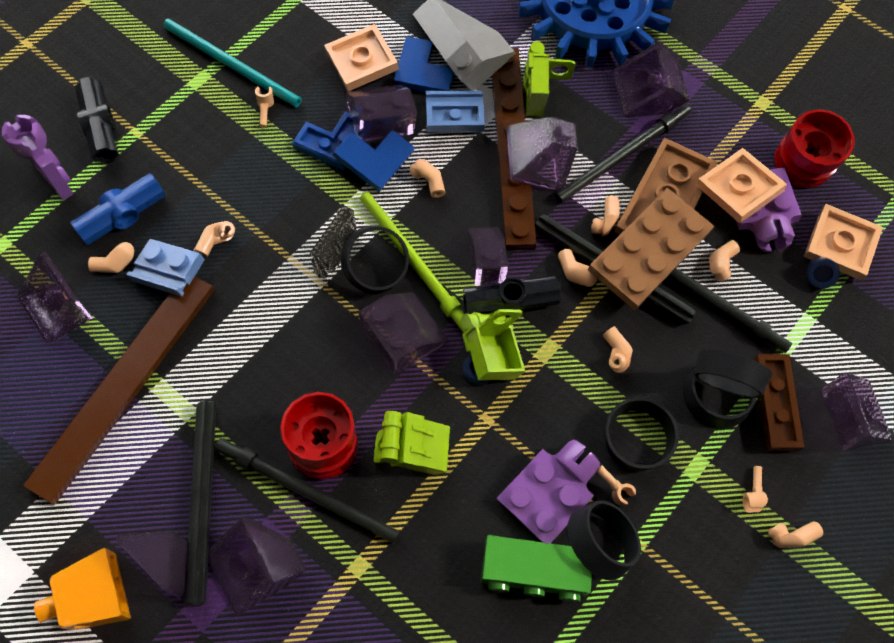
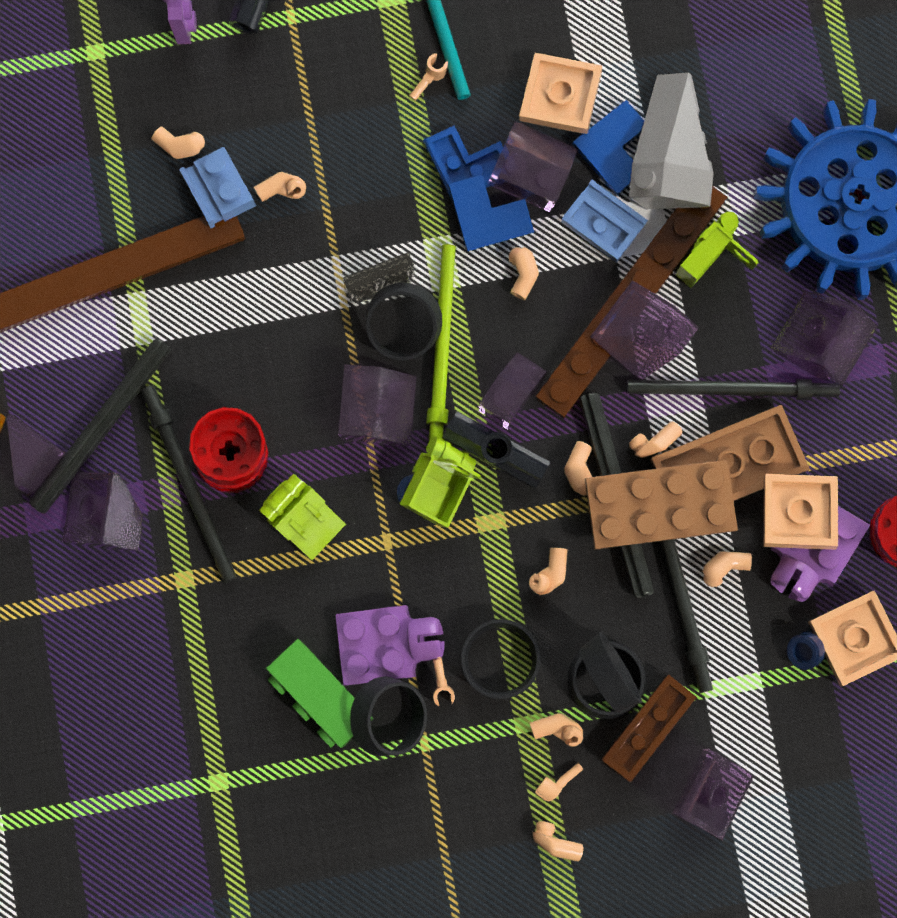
camera: 45 degrees right, 15 degrees up
(51, 300) = (101, 147): clear purple slope -> none
(118, 209) = (216, 95): blue piece -> none
(721, 450) = (560, 726): none -> light nougat arm

